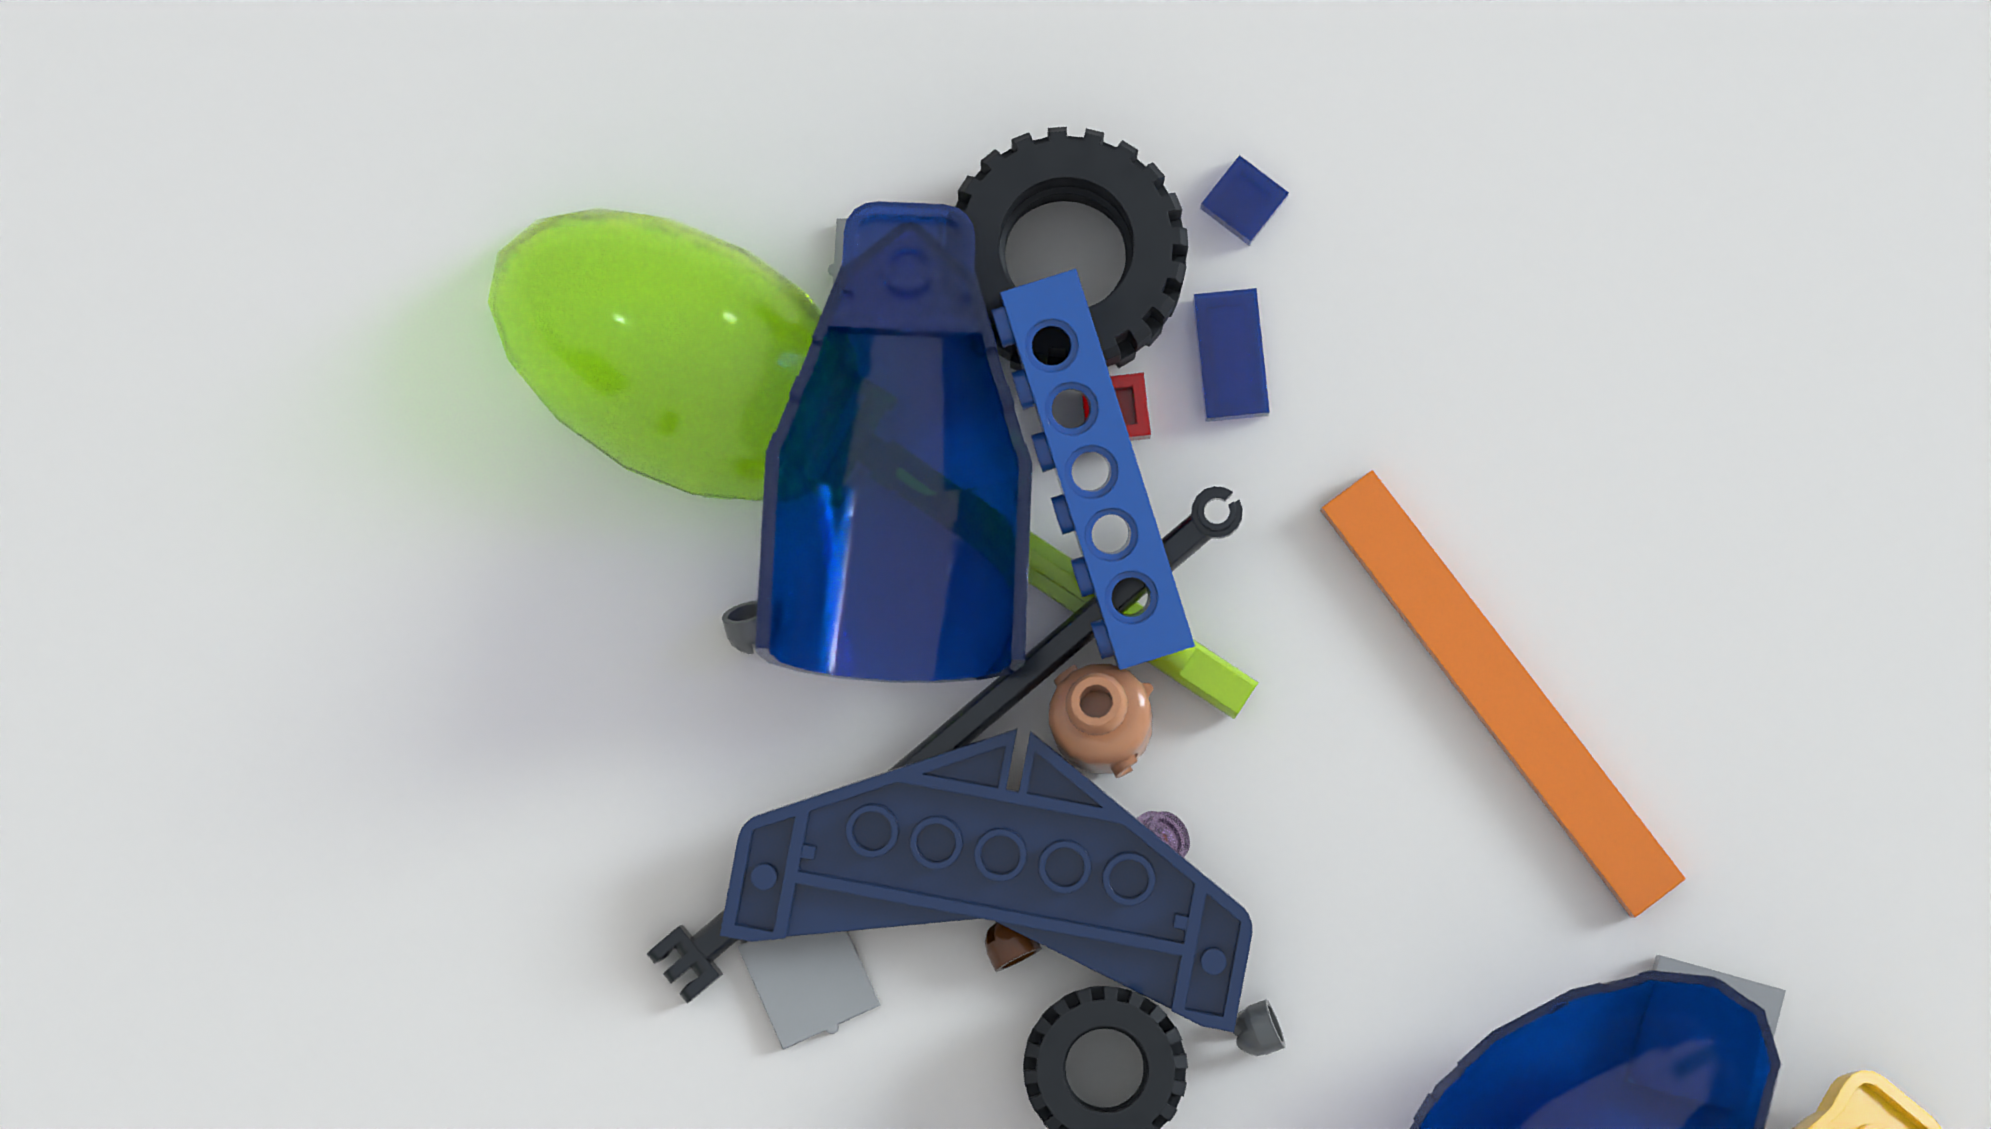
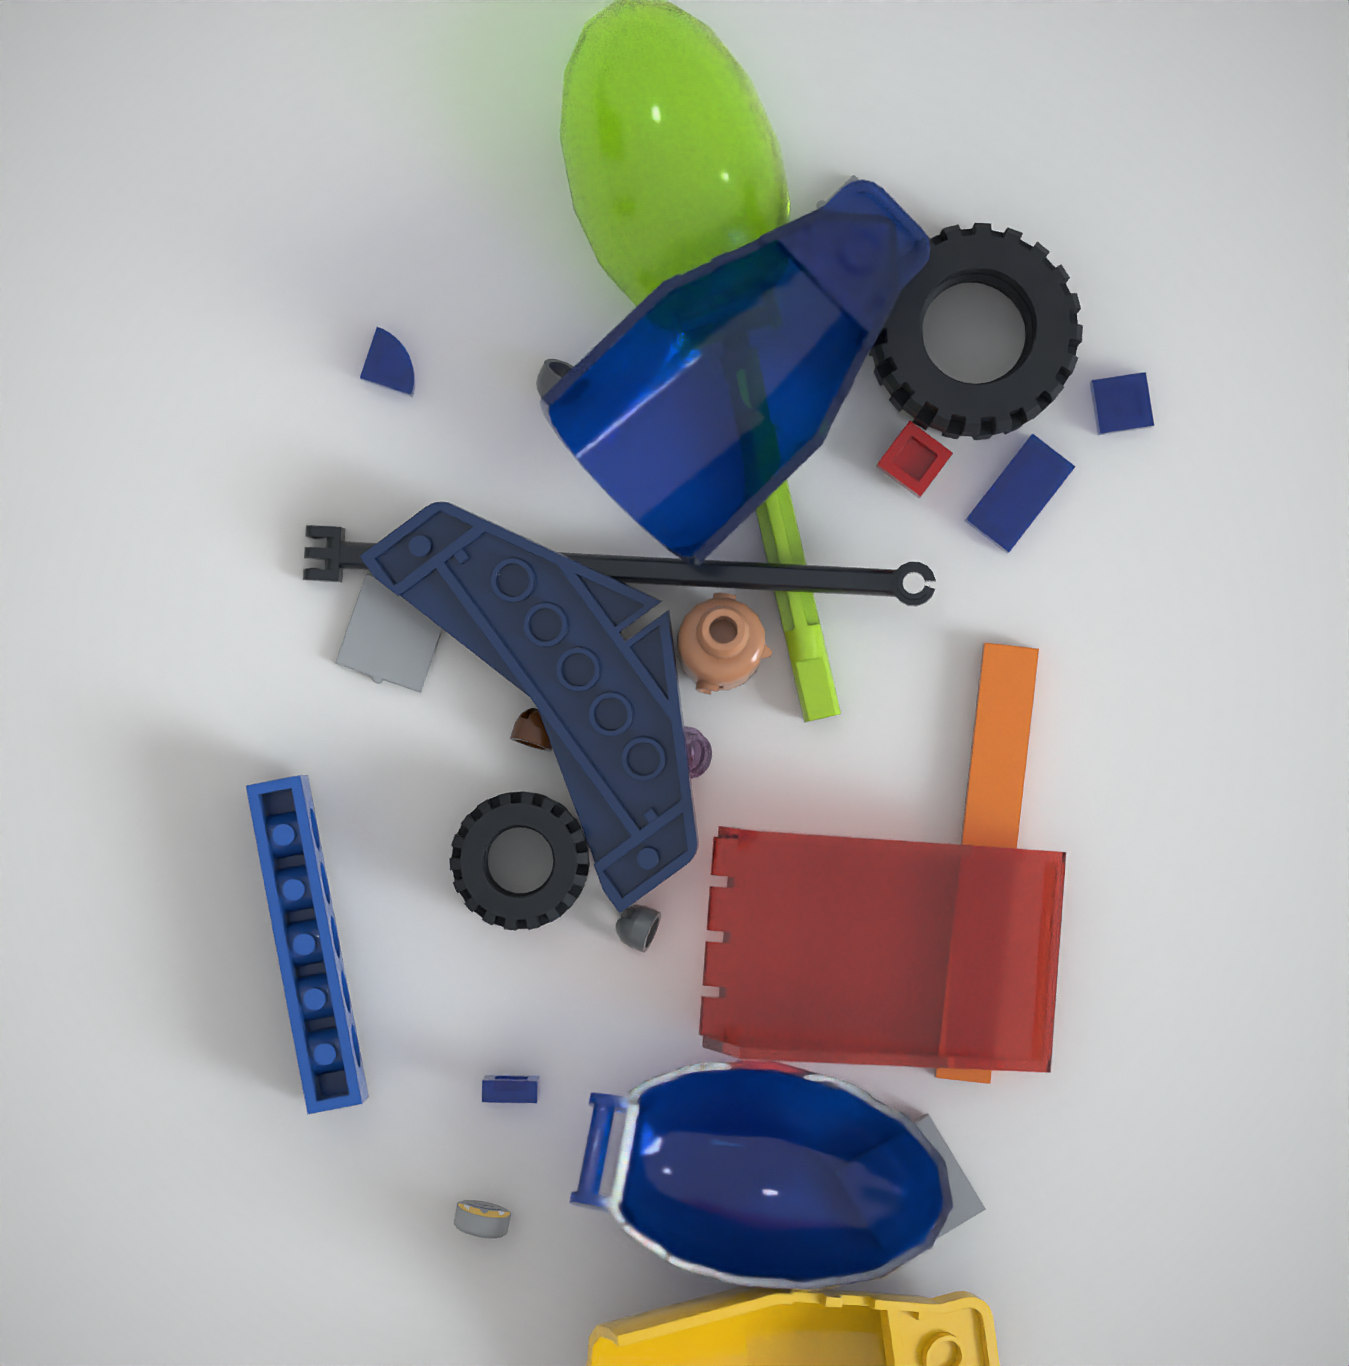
camera: 40 degrees right, 5 degrees up
(589, 747) = (389, 364): none -> clear blue tile
(1161, 623) = (808, 620): blue brick -> none
(1487, 853) = (882, 951): none -> clear red windscreen

